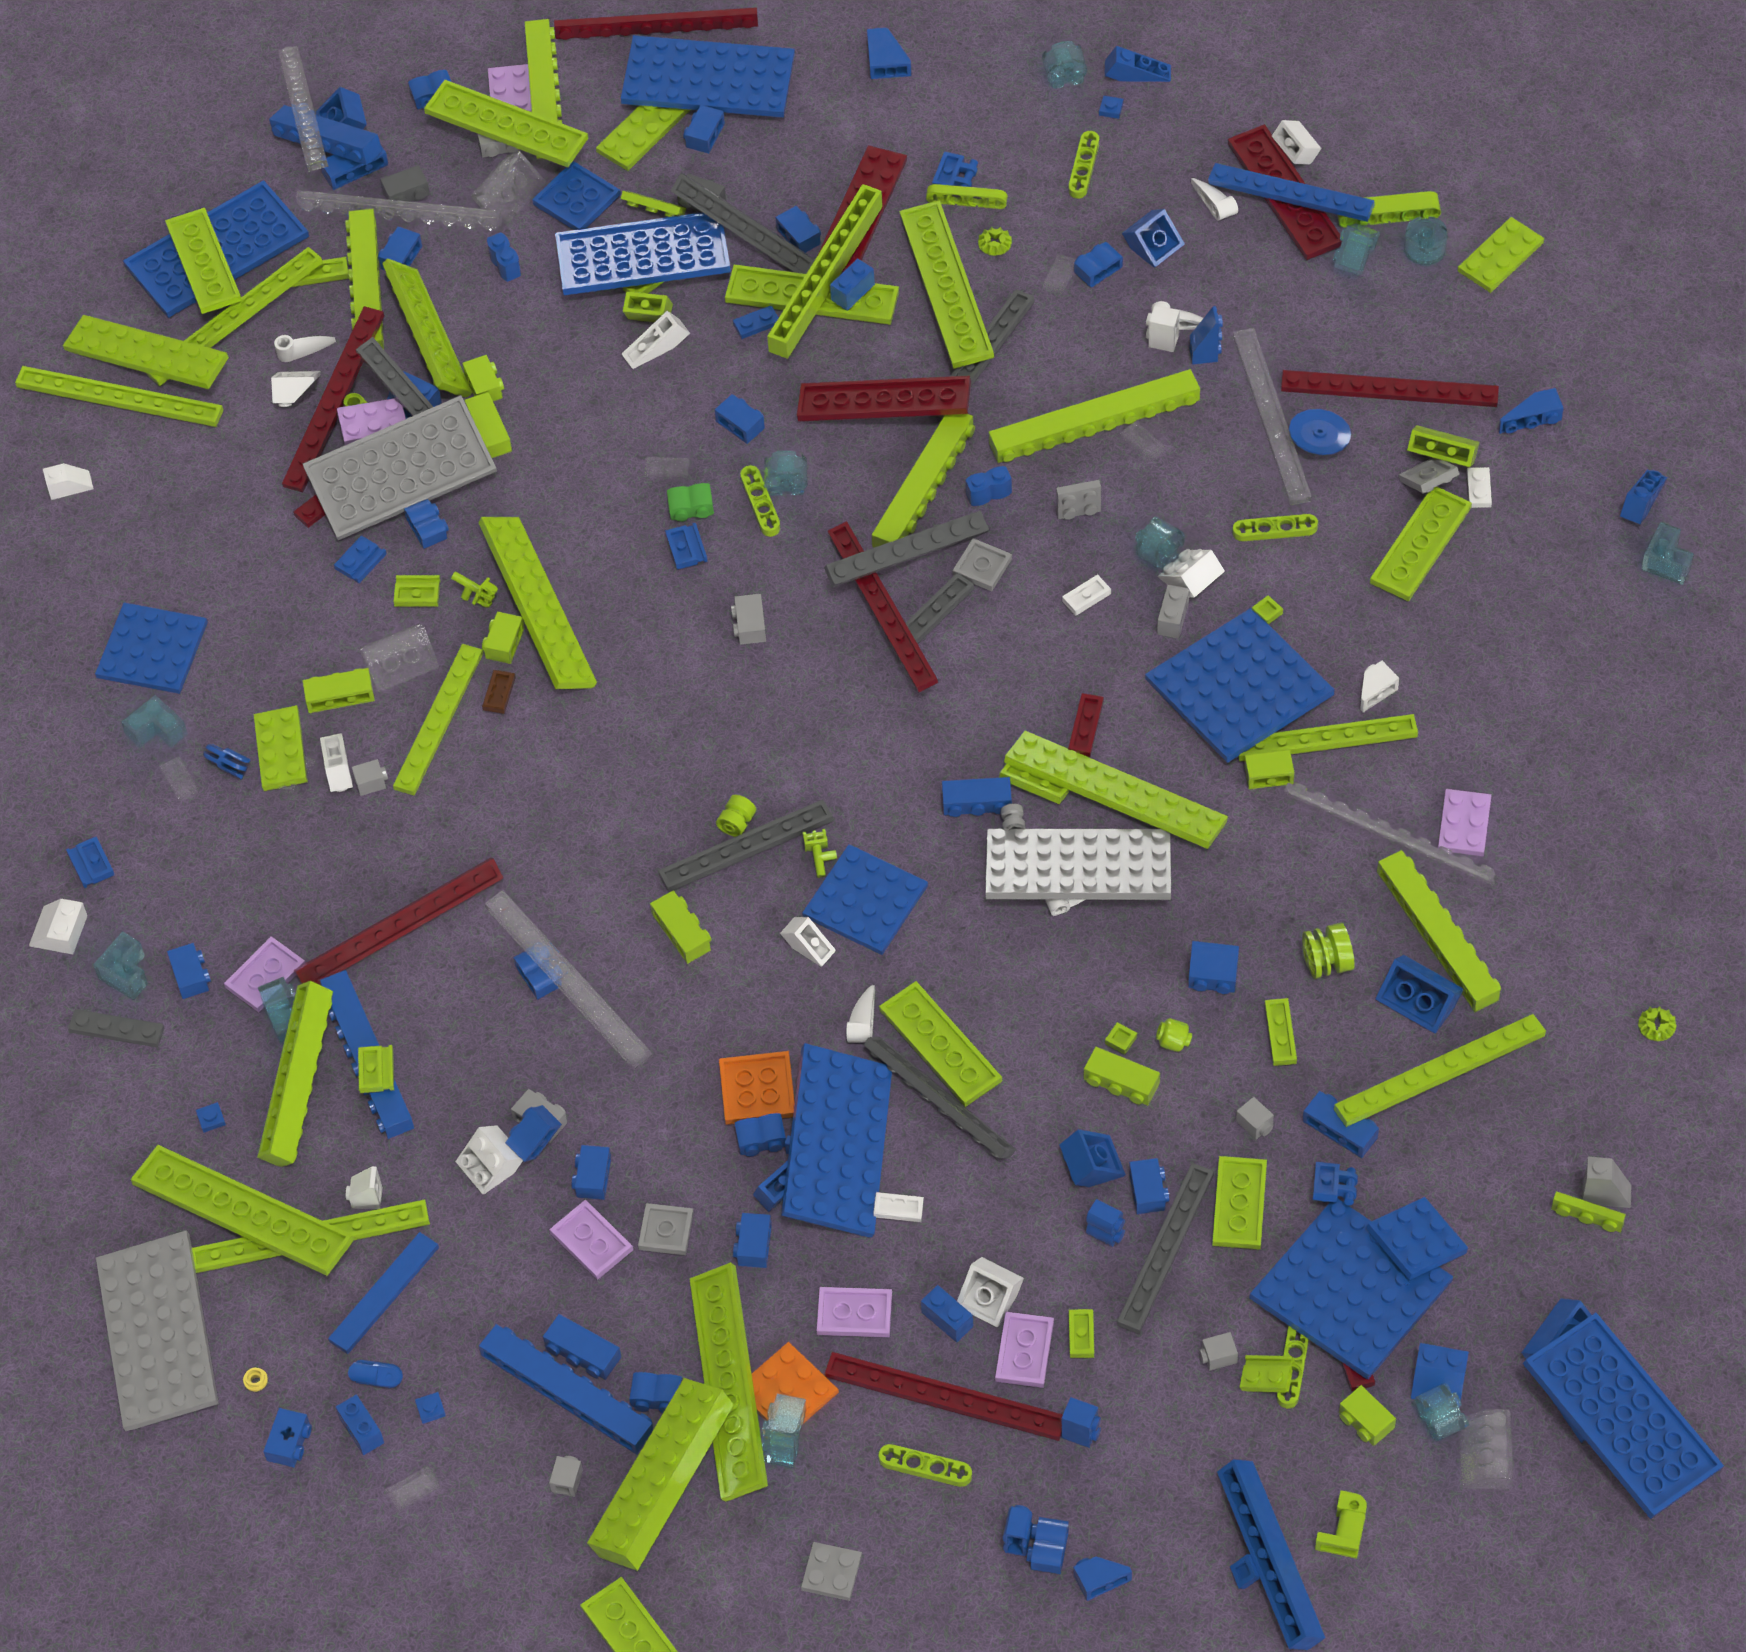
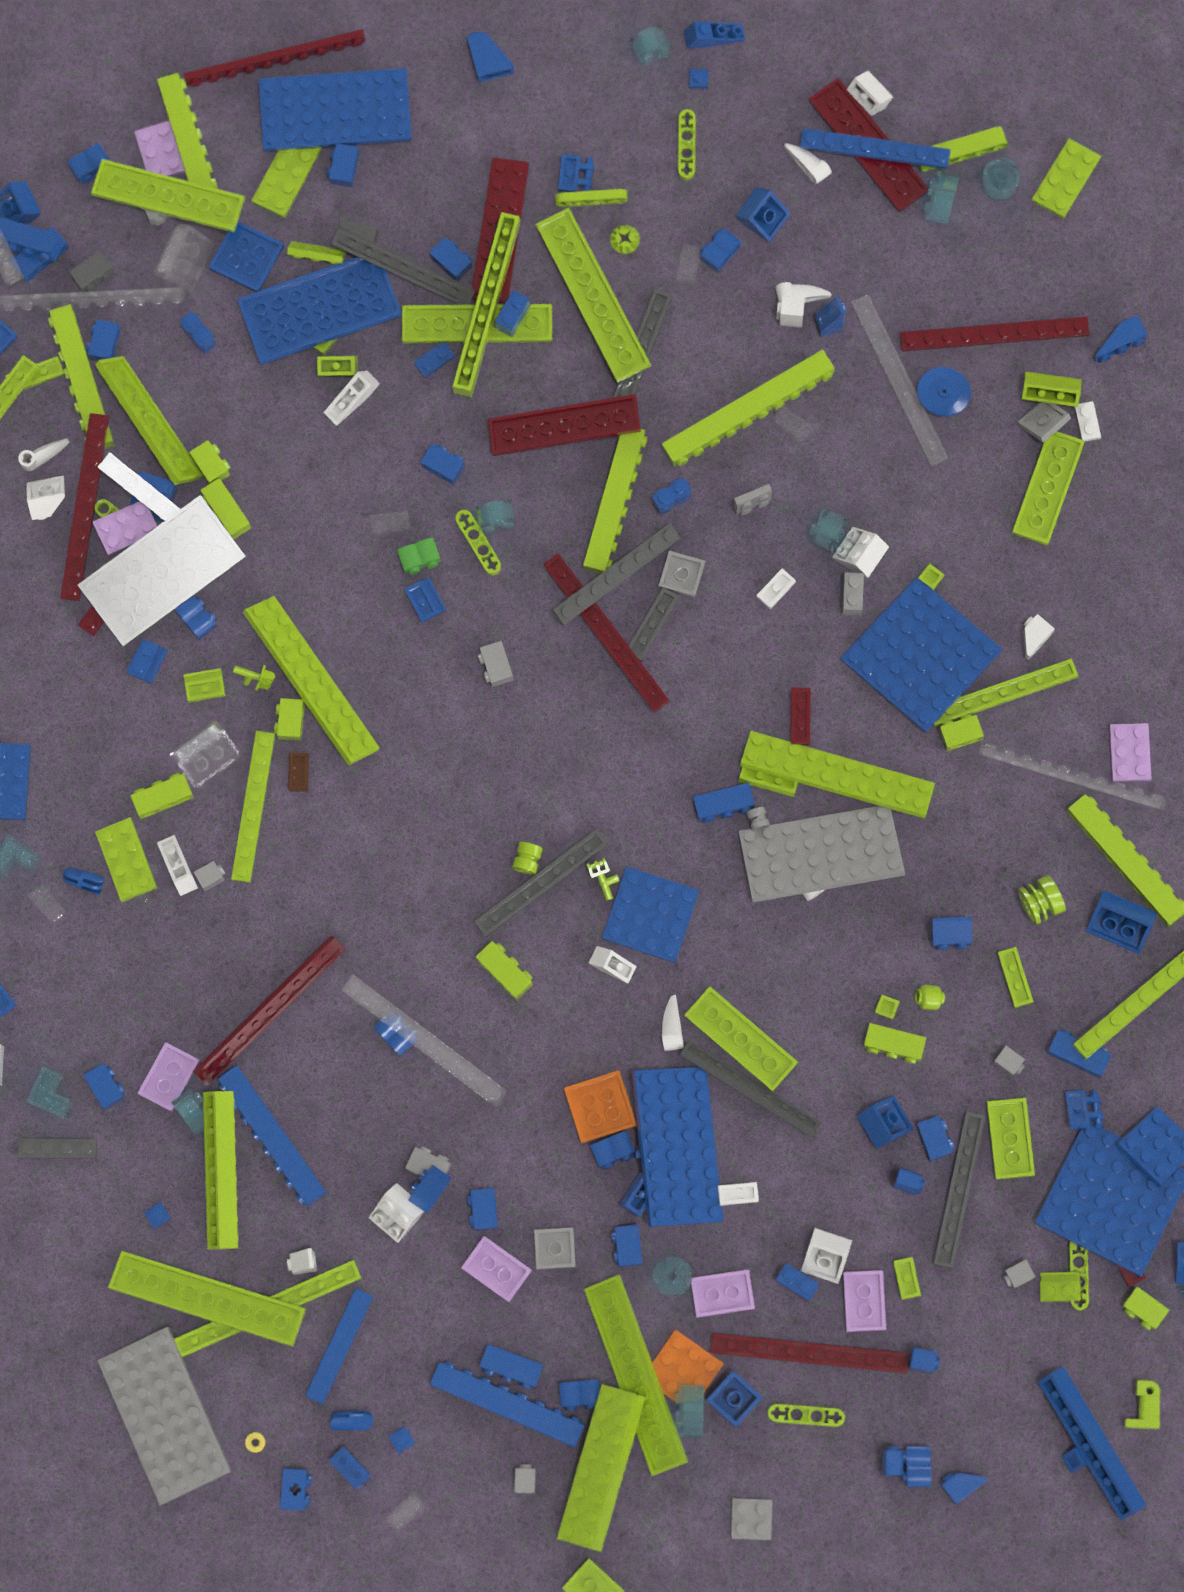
camera: 10 degrees left, 20 degrees up
(375, 1068) = (286, 1155): lime plate -> none
(807, 1289) = (663, 1282): none -> clear light blue plate
(841, 1427) = (734, 1399): none -> blue brick
(1274, 524) = (921, 490): lime beam -> none

